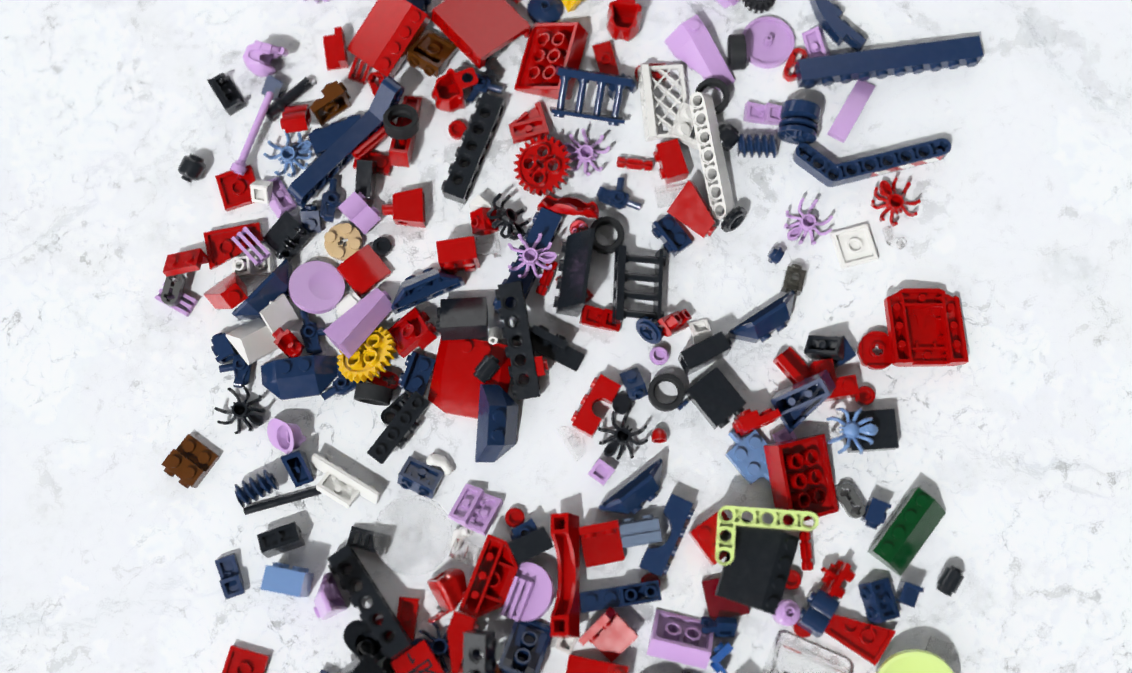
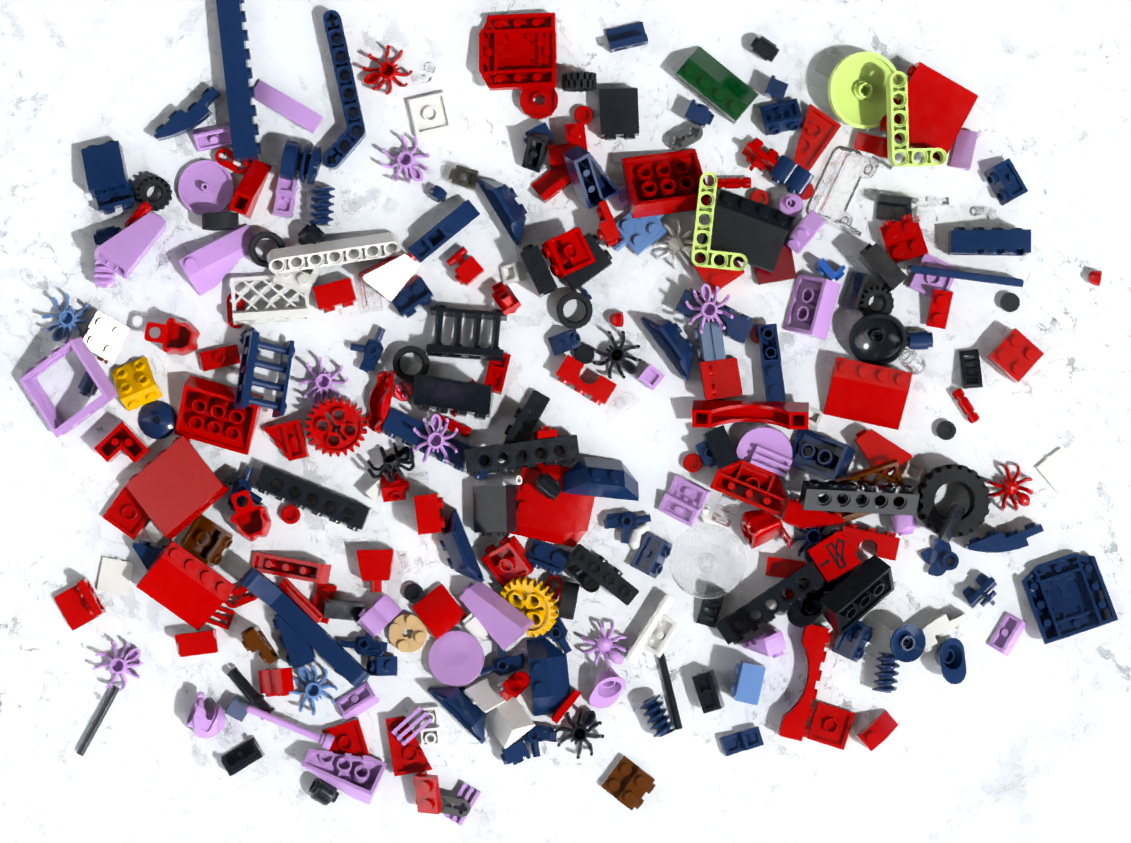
camera: 90 degrees left, 10 degrees up
(207, 190) = (348, 773): none -> lavender wedge
(227, 292) = (461, 747): slope -> none
(250, 631) = (794, 721): none -> red arch
(261, 191) = (353, 716): white slope -> none
(269, 395) = (565, 705): none -> red tile
(287, 237) = (401, 690): black hinge -> none
(298, 467) = (639, 675): dark blue slope -> none
(329, 432) = (604, 644): none -> lavender animal
(404, 132) = (272, 570): black tyre -> none
(454, 449) = (626, 521): none -> dark blue piece
(609, 634) = (806, 374): bracket -> none
(634, 163) = (334, 333): red axle -> none
(649, 330) = (512, 324): dark blue gear -> none
(659, 355) = (536, 315): lavender plate -> none
(673, 527) = (708, 309): none -> lavender animal
(702, 286) = (468, 269): none -> red brick
(721, 627) = (802, 266): dark blue plate -> none
(724, 380) = (567, 253): none -> red plate
(733, 219) = (400, 234): black gear -> none
(738, 494) = (677, 245): none -> white animal
(740, 261) = (444, 231): none -> dark blue slope
(760, 628) = (804, 231): none -> lavender brick
(768, 78) = (249, 189): none -> red slope
(852, 430) = (620, 132): medium blue animal -> none
(899, 388) = (579, 81): none -> black tyre
(948, 437) = (626, 37): none -> dark blue panel

